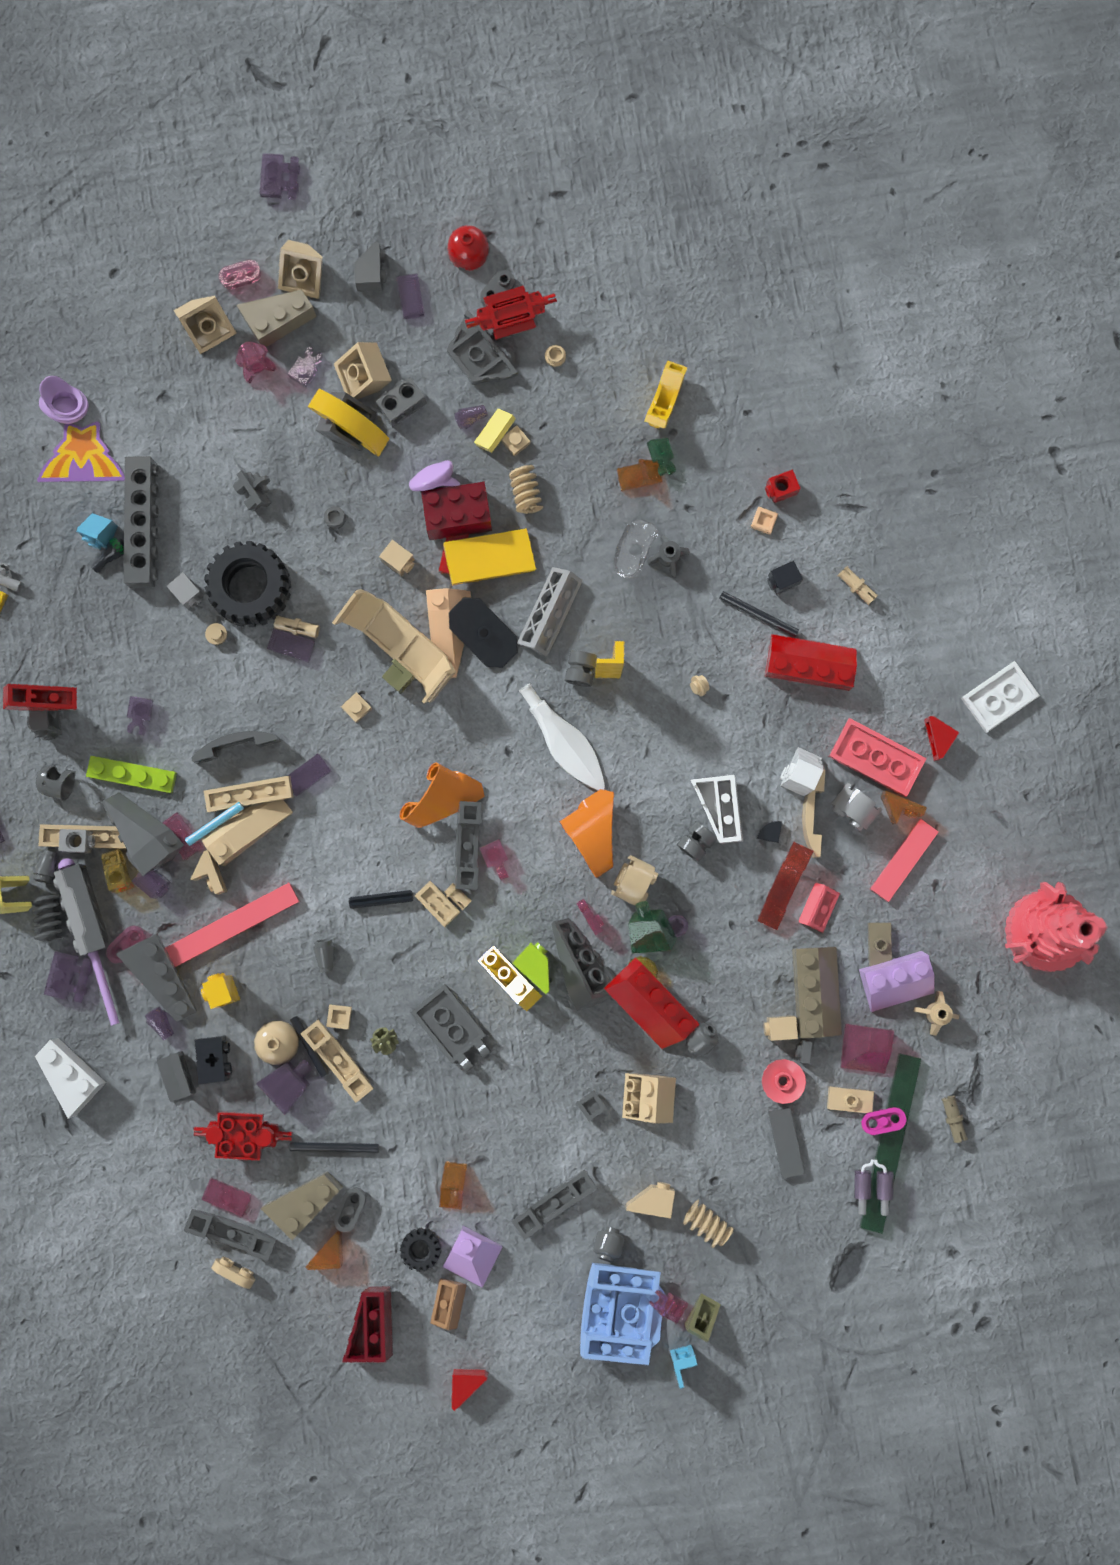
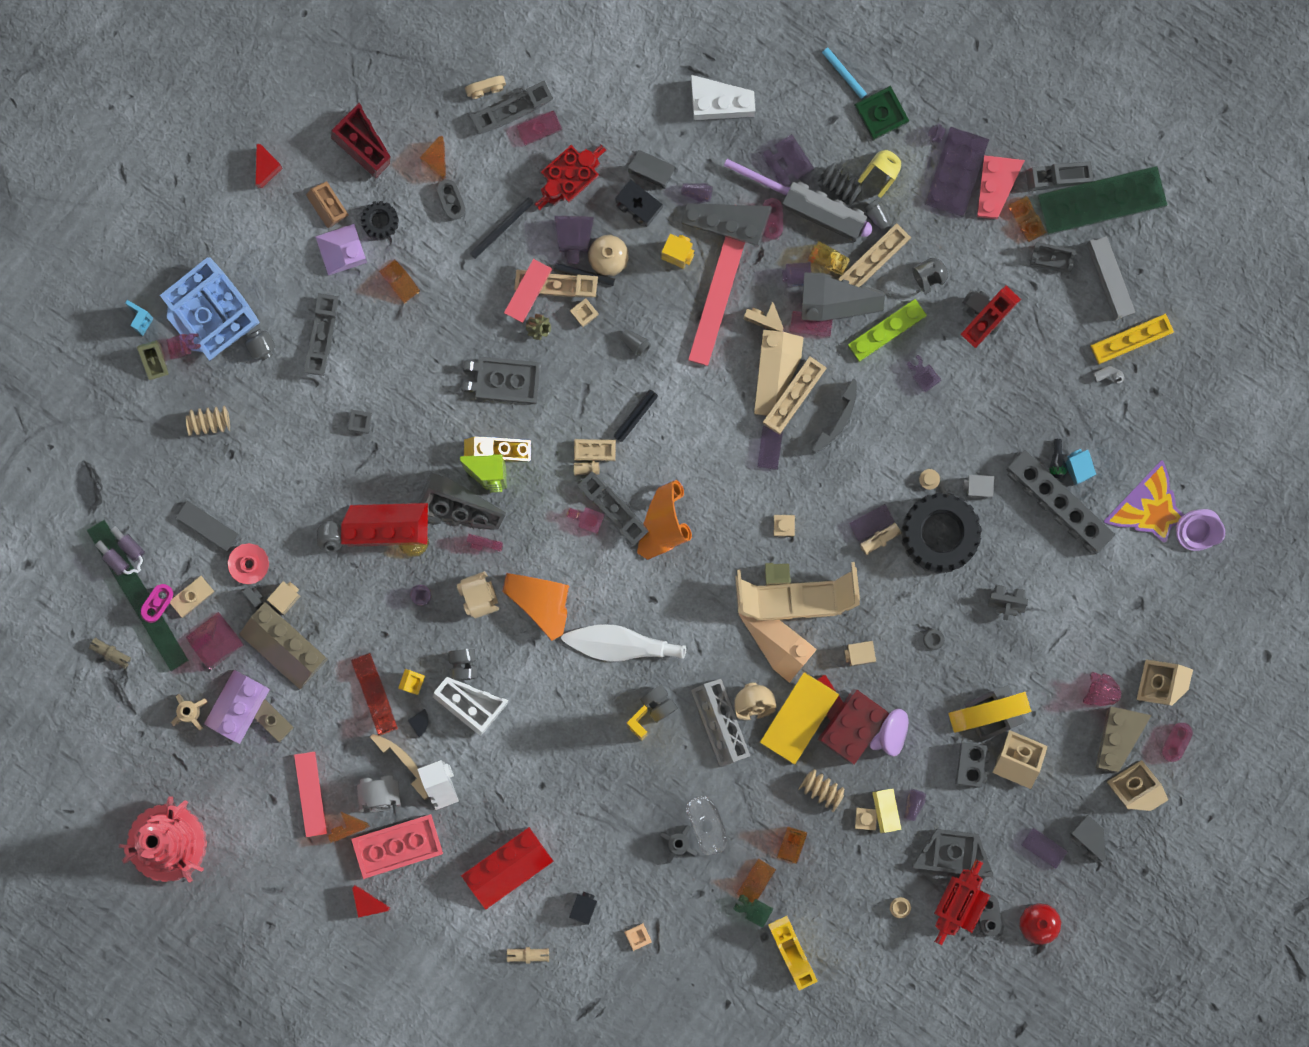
camera: 135 degrees right, 0 degrees up
(67, 837) = (875, 242): light grey brick -> none
(214, 823) = (796, 353): medium azure bar -> none
(272, 176) = (1229, 836): clear purple plate -> none
(298, 1207) = (485, 171): dark tan wedge -> none
(304, 369) = (1063, 720): clear purple plate -> none
(363, 1076) = (528, 291): none -> coral tile
(482, 632) = (750, 661): black shield -> none
(509, 600) = (754, 700): none -> tan cylinder
(586, 474) = (792, 844): none -> clear orange slope
(649, 1098) = (326, 464): tan slope -> none
(650, 930) = (434, 572): clear green torso -> none
(654, 1201) = (258, 401): tan slope -> none
(699, 685) = (567, 774): tan plate -> none
(747, 867) = (411, 682): none -> yellow plate
(759, 614) = (576, 866): black bar -> none
(789, 480) = (648, 981): red brick -> none
(819, 907) = (337, 704): coral slope -> none
(1000, 697) = (353, 975): white tile -> none

